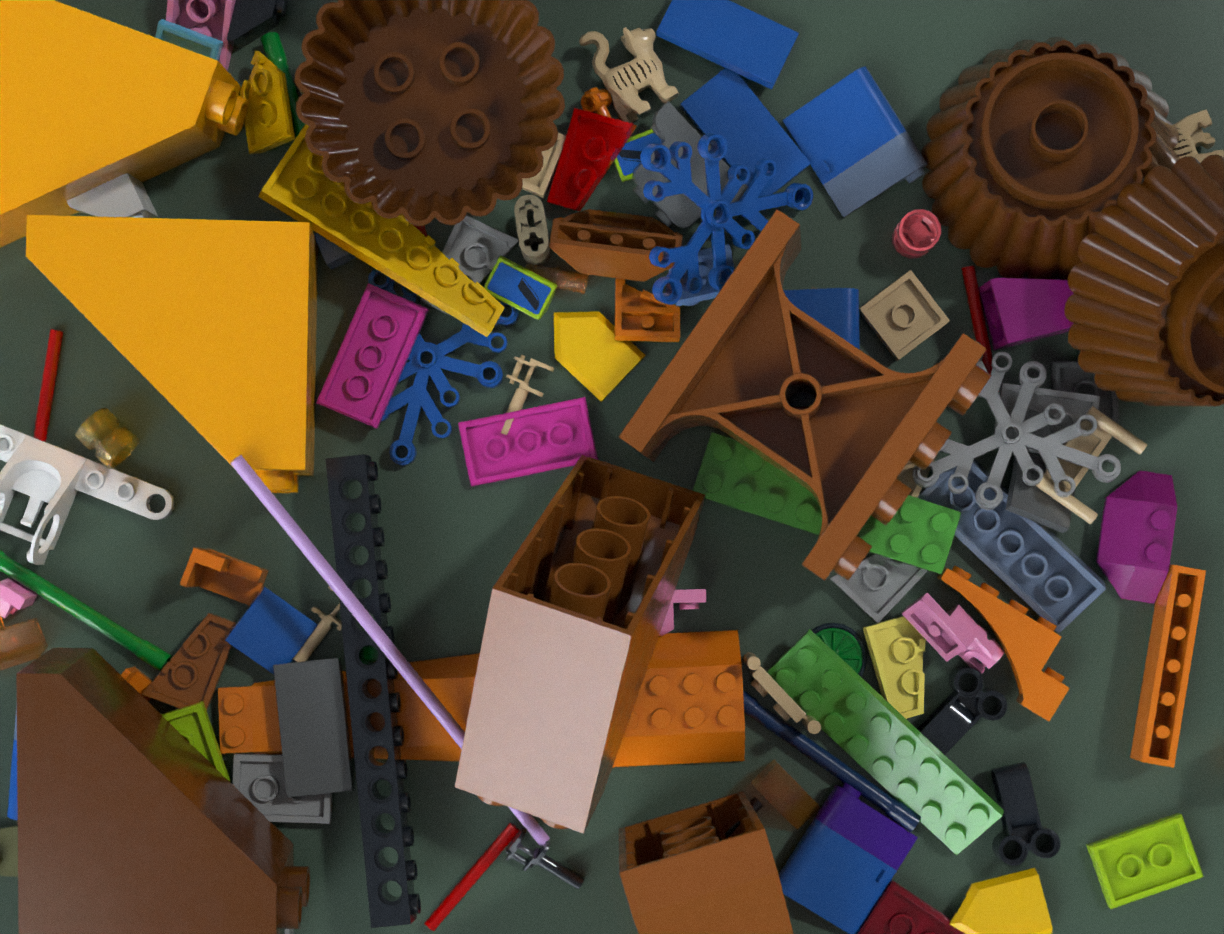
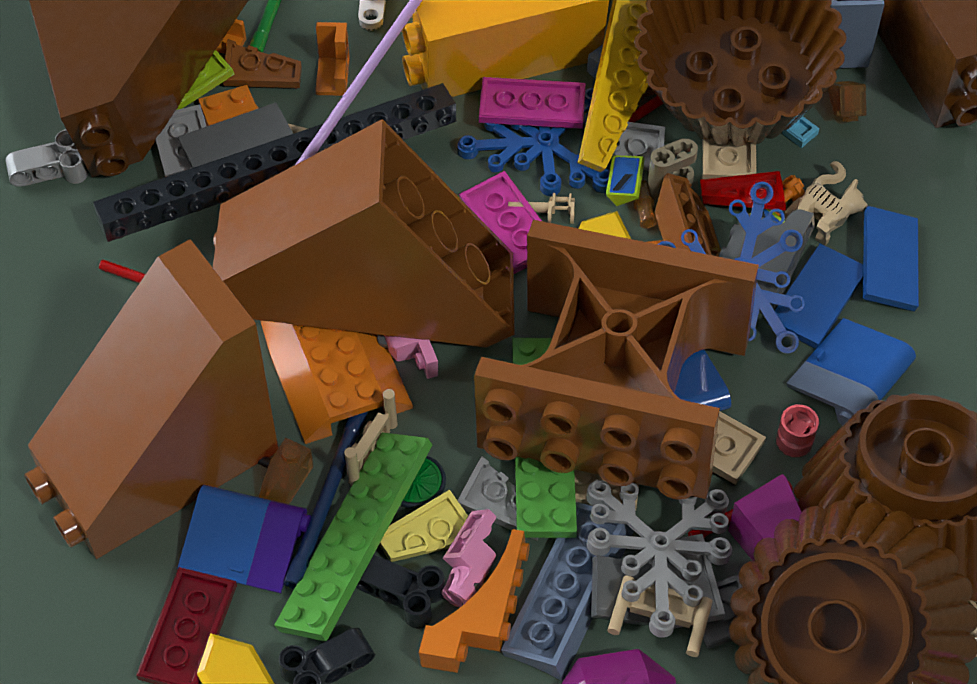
camera: 70 degrees right, 30 degrees down
(270, 630) = (302, 99): blue tile -> none

